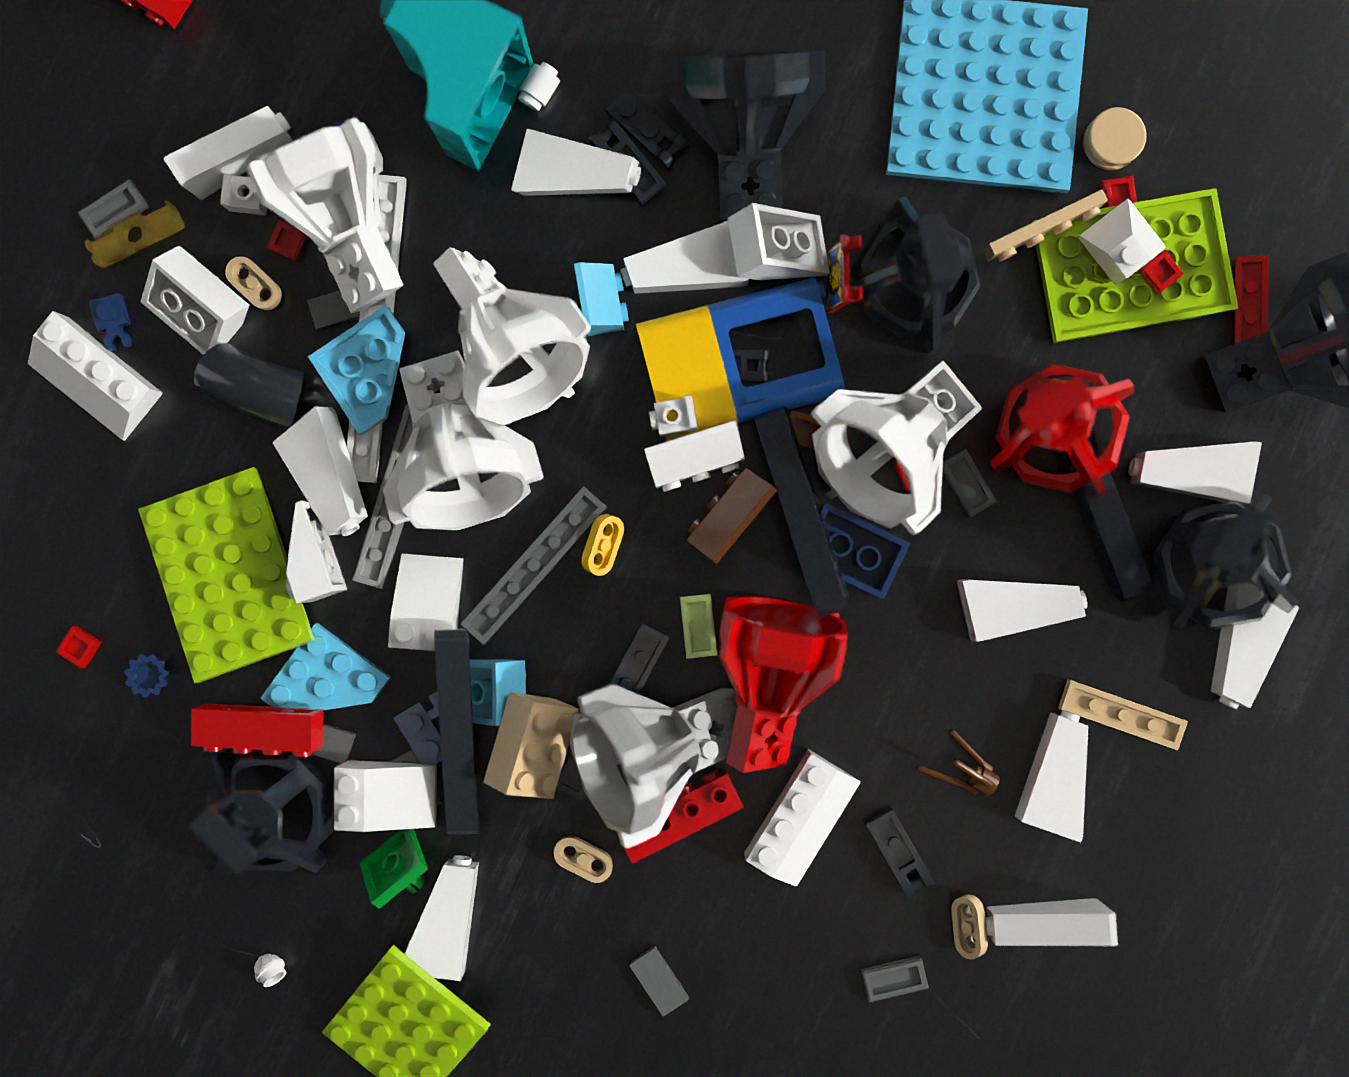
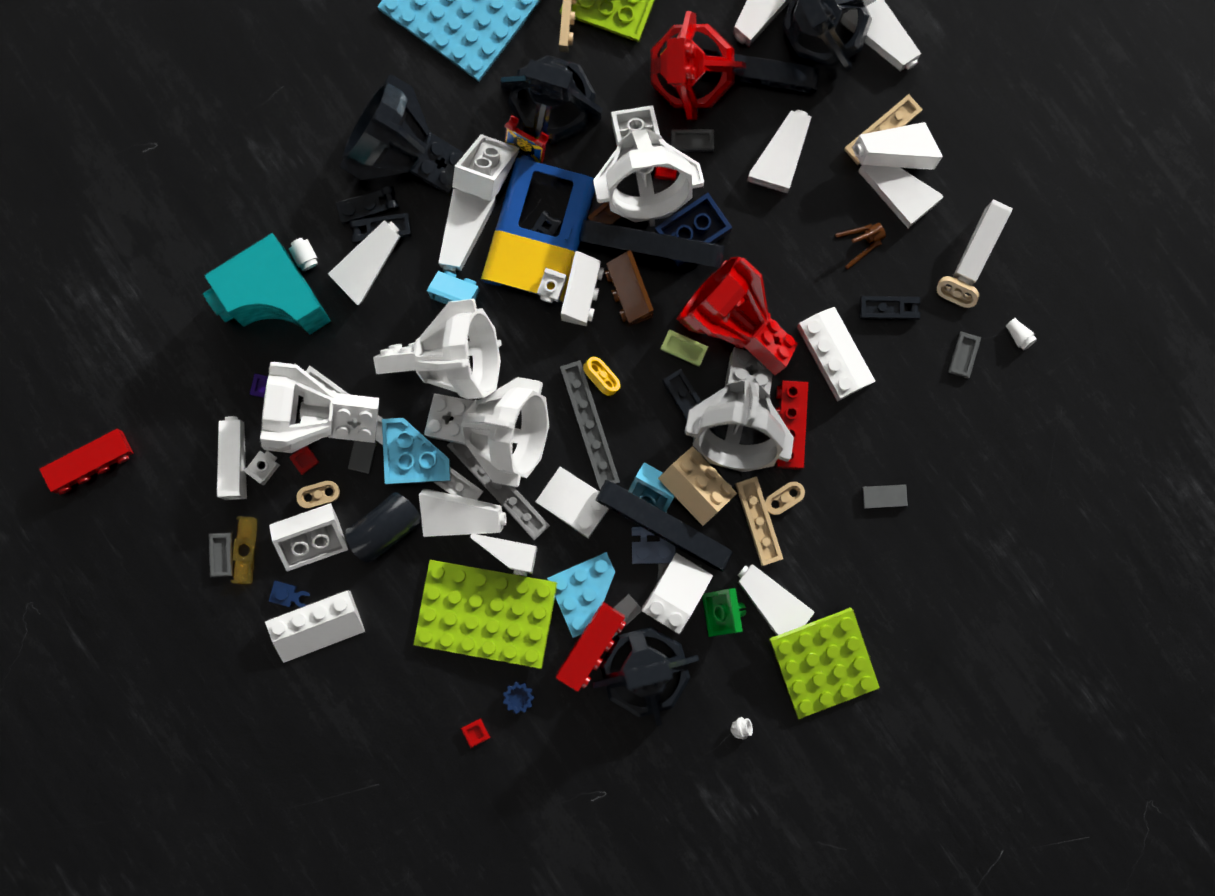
camera: 65 degrees left, 5 degrees down
(535, 844) = (759, 521): none -> tan plate
(962, 1036) = (1022, 335): none -> white cone
(1111, 750) = (899, 147): none -> white slope

